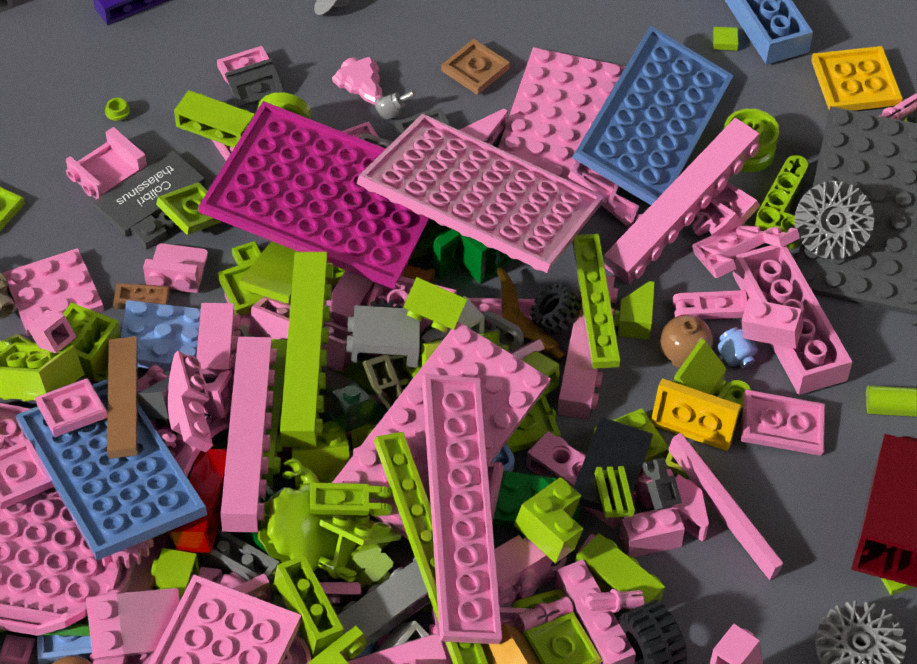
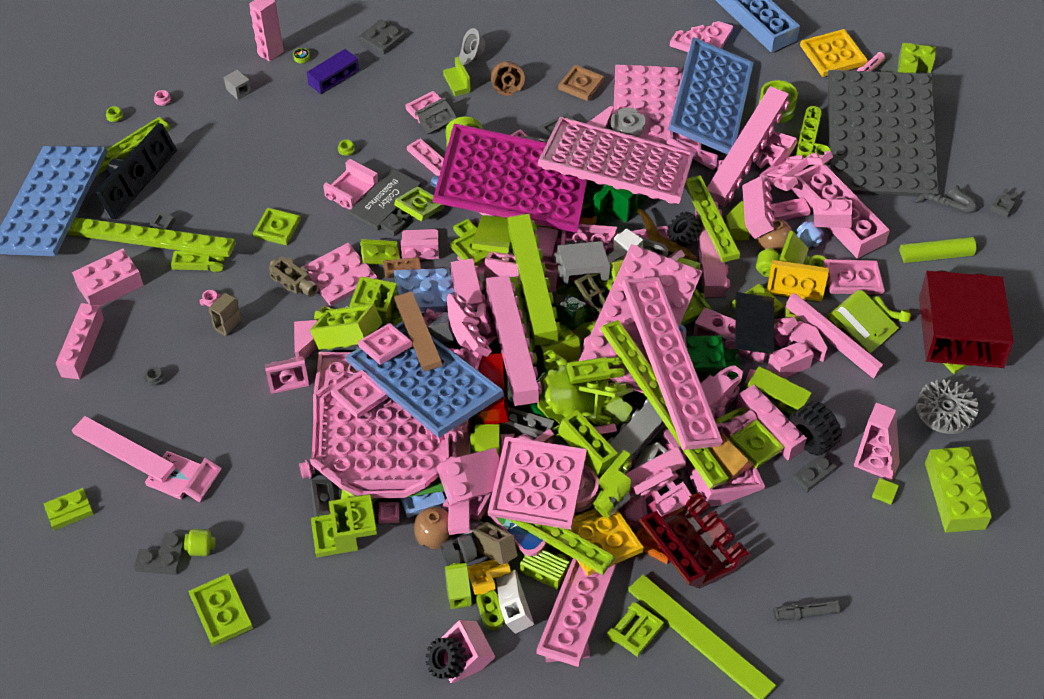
camera: 10 degrees left, 0 degrees up
(51, 331) = (356, 296): bright pink brick -> none
(115, 267) = (378, 251): none -> lime plate
(212, 118) = (418, 143): lime brick -> none
(302, 34) = (457, 78): none -> lime panel
(360, 78) = (506, 102): bright pink rock -> none
(372, 40) = (507, 78): none -> medium nougat cylinder
(391, 105) = (533, 116): light grey piece -> none
(434, 304) = (613, 235): lime slope -> none
(525, 148) = (636, 124): none -> light grey plate
(548, 520) = (729, 361): lime brick -> none
(611, 474) = (766, 337): lime tile -> none
(614, 600) = (784, 406): bright pink axle -> none
(660, 369) = (765, 259): none -> lime head
(662, 488) = (793, 329): dark grey plate -> none
(669, 295) = (758, 207): none -> bright pink brick
(686, 26) = (715, 34): none -> bright pink plate
(725, 38) = (740, 40): lime tile -> none
(774, 490) = (863, 320): none -> lime door
(840, 494) = (904, 316): none -> lime piece
(853, 212) = (862, 132): light grey wheel -> none

